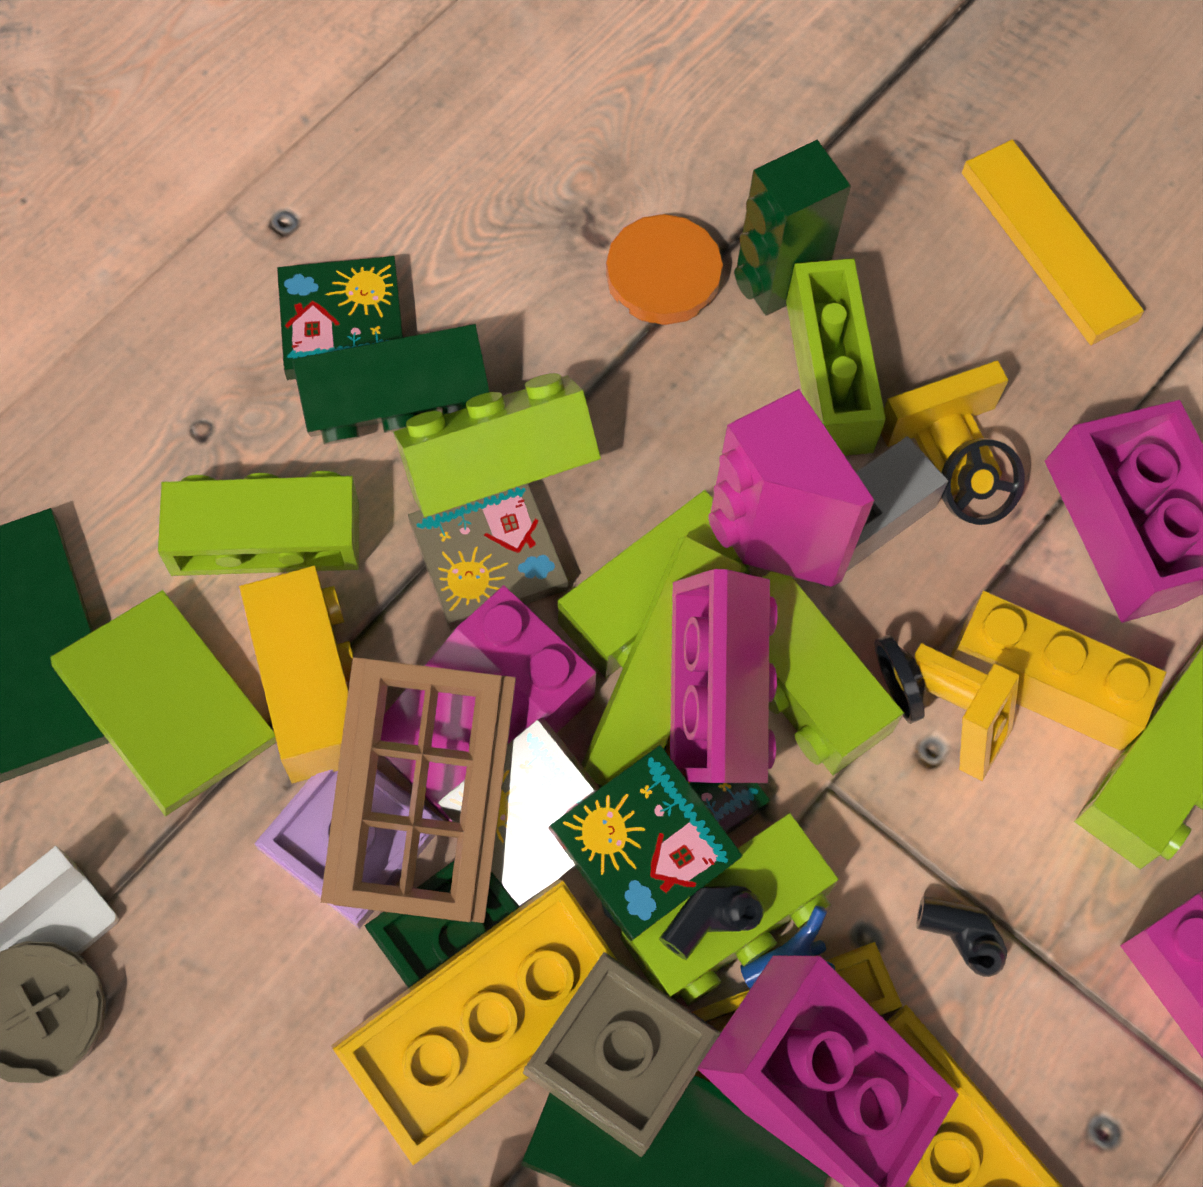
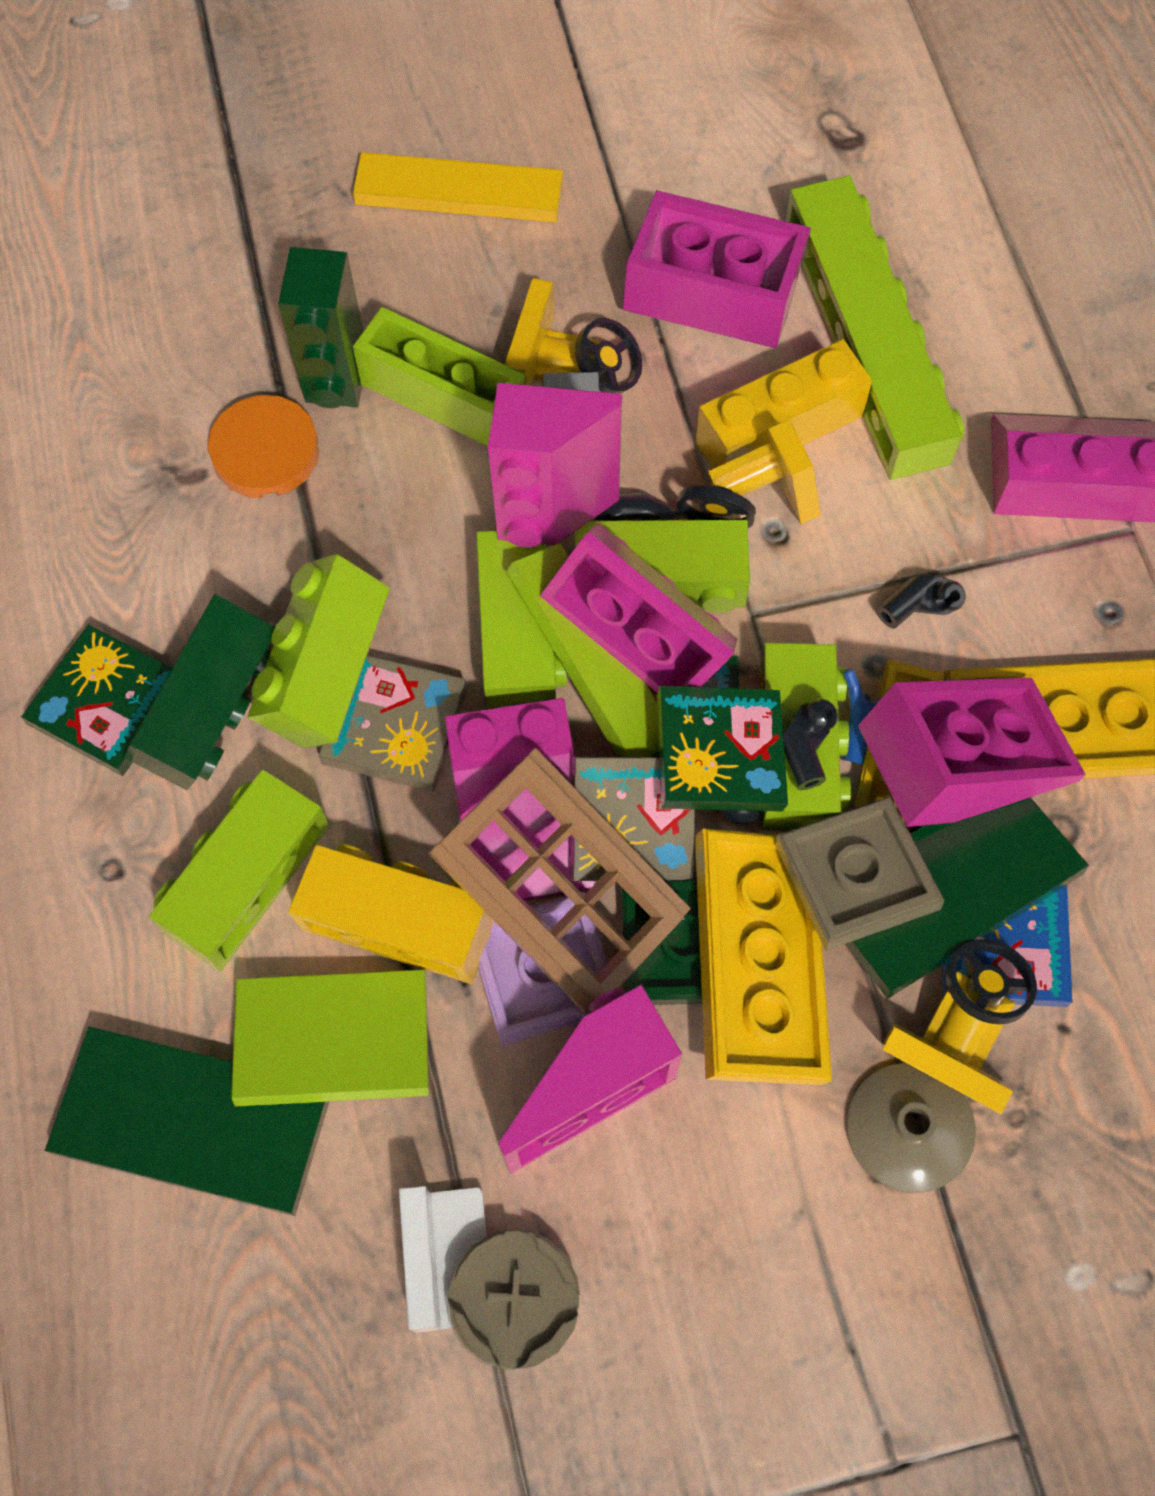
camera: 50 degrees left, 0 degrees up
(266, 938) = (603, 1068): none -> dark pink slope
(852, 612) = (638, 508): none -> black arm

